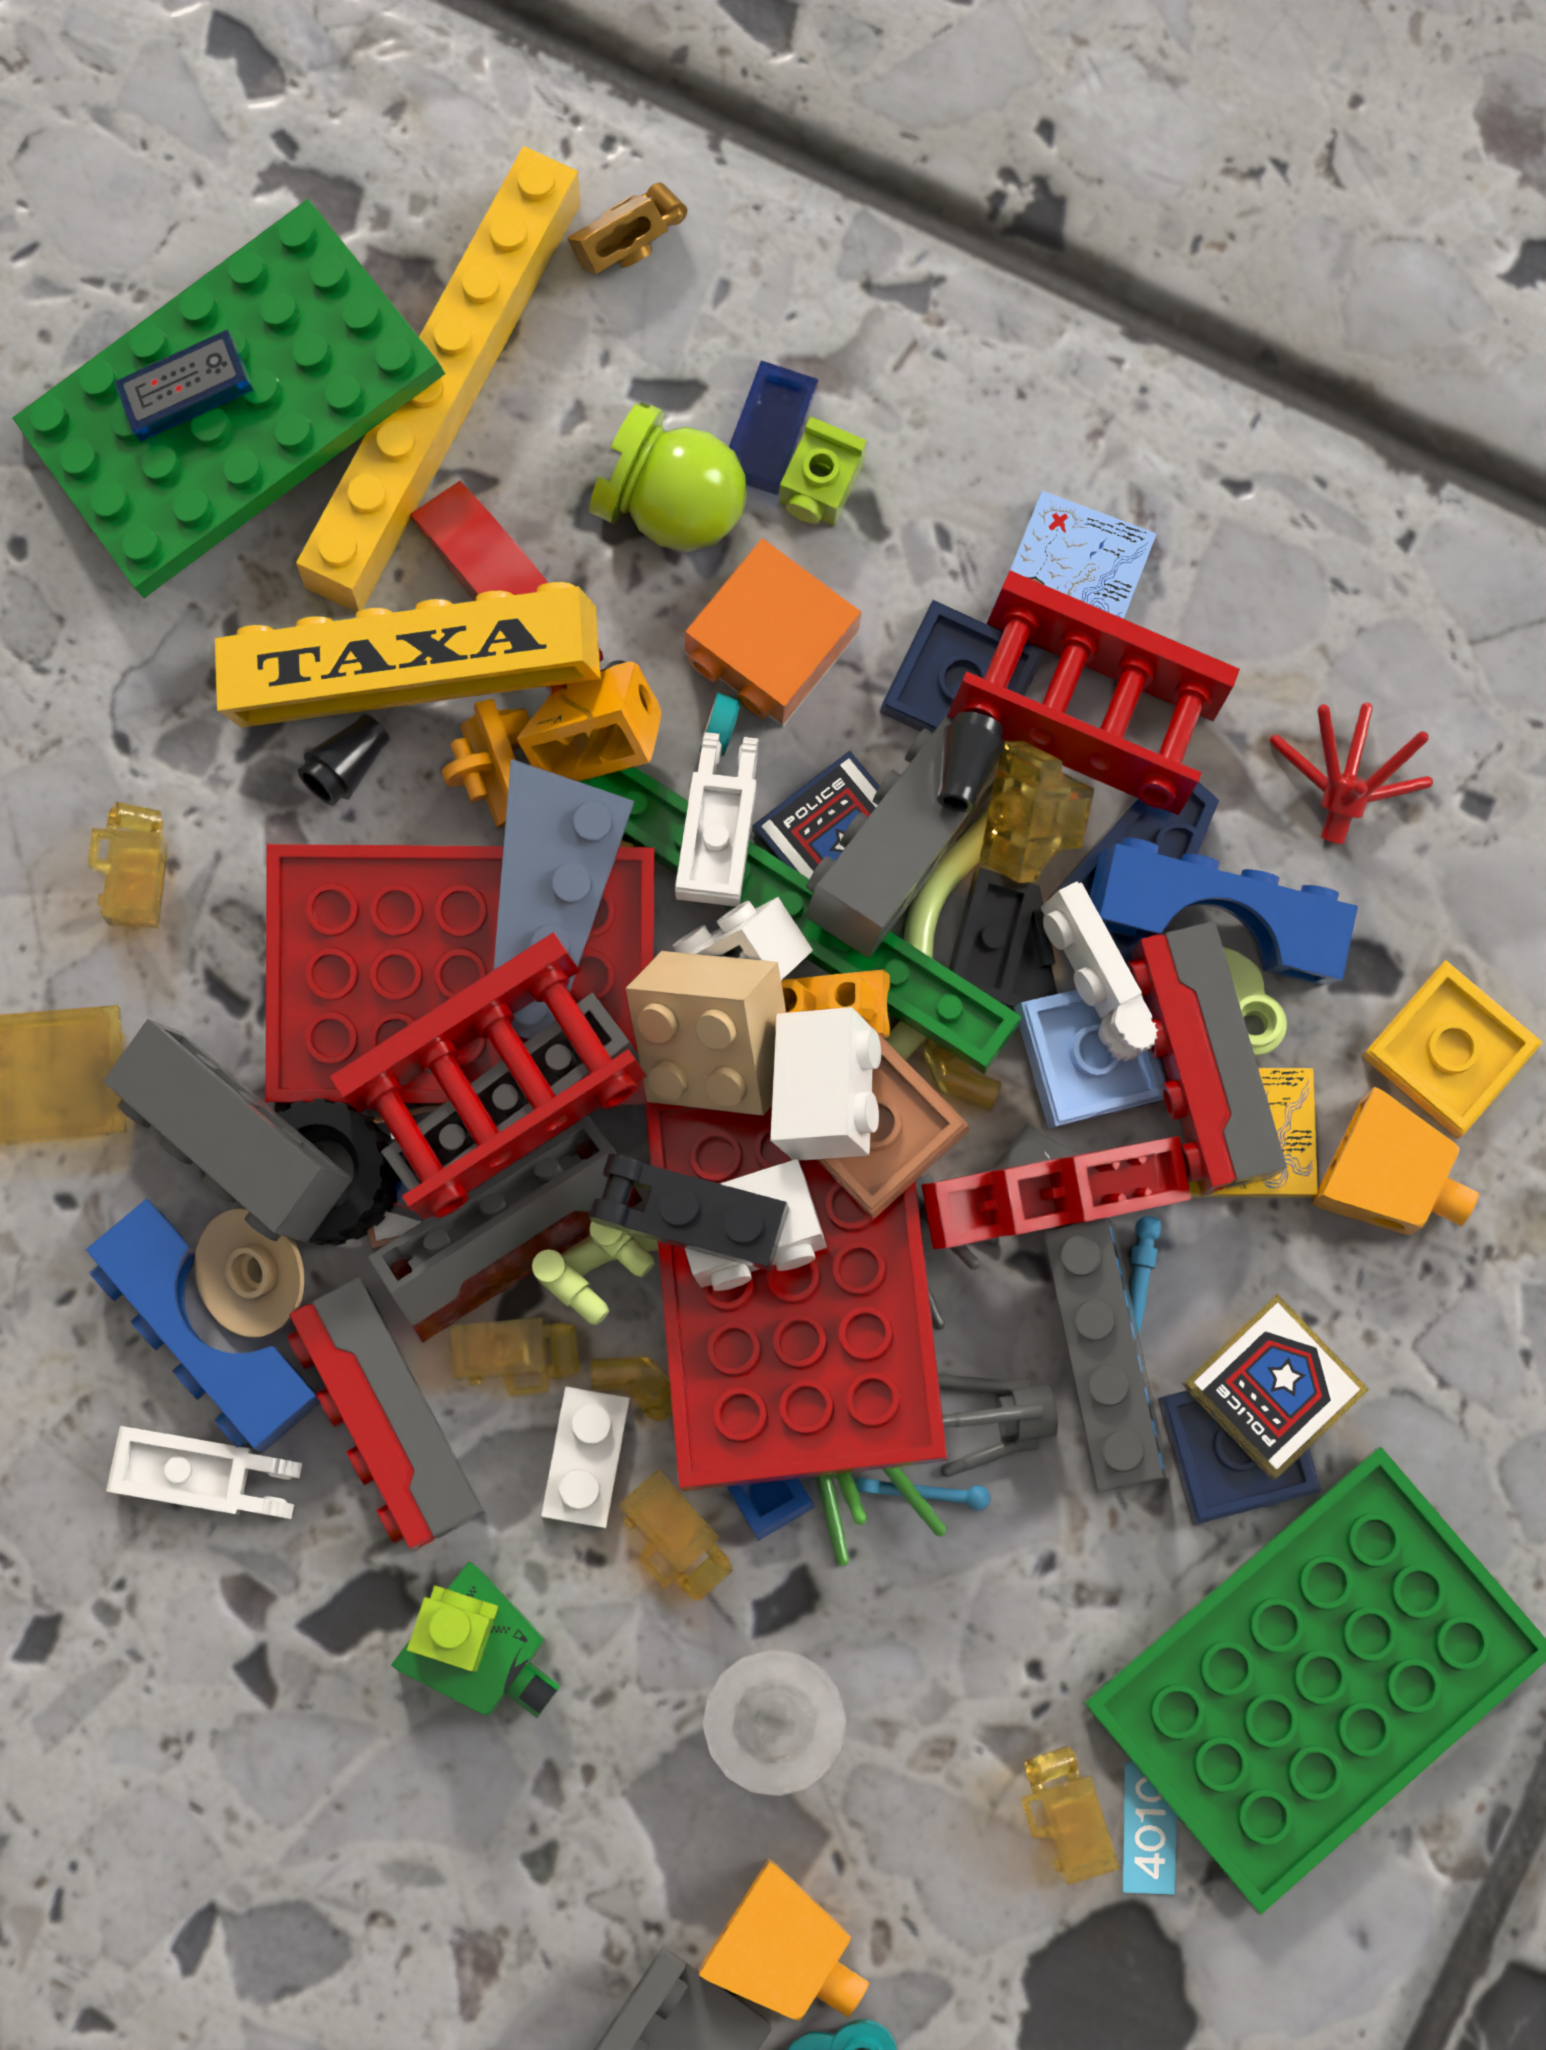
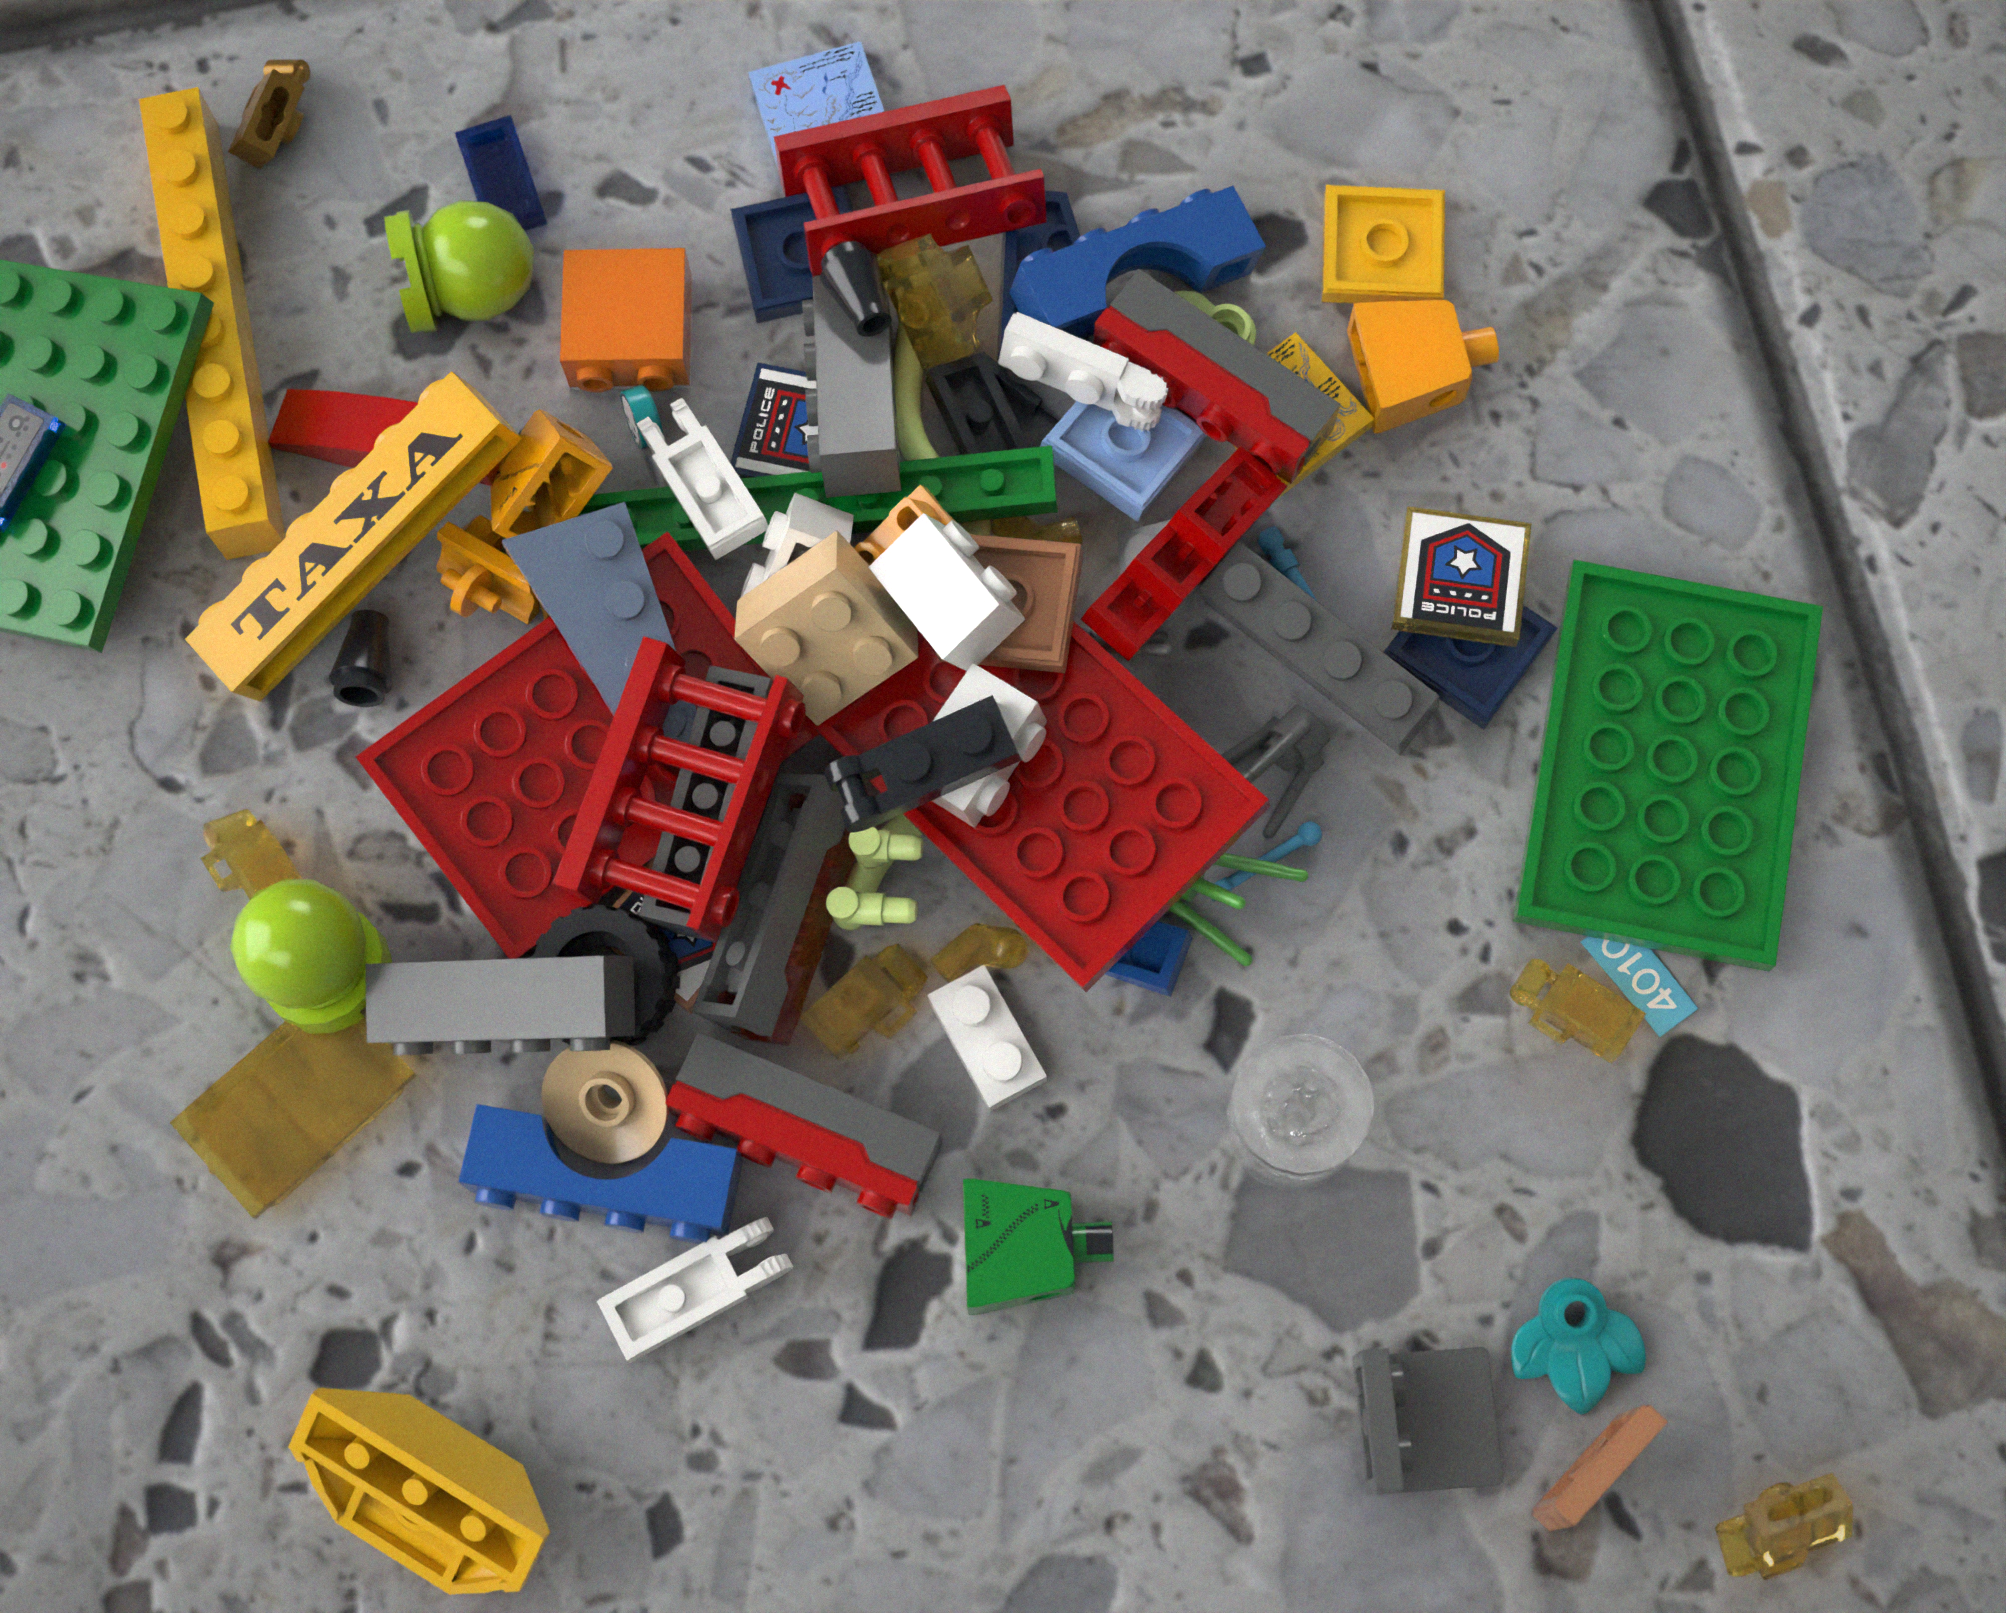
camera: 30 degrees left, 5 degrees down
(112, 973) = (307, 953): none -> lime tile
(453, 1628) = (996, 1234): lime brick -> none
(676, 1535) = (1104, 1039): clear yellow piece -> none
(783, 1950) = (1447, 1280): light orange torso -> none
(833, 452) = (569, 177): lime brick -> none
(1345, 792) = (1154, 120): red plant -> none

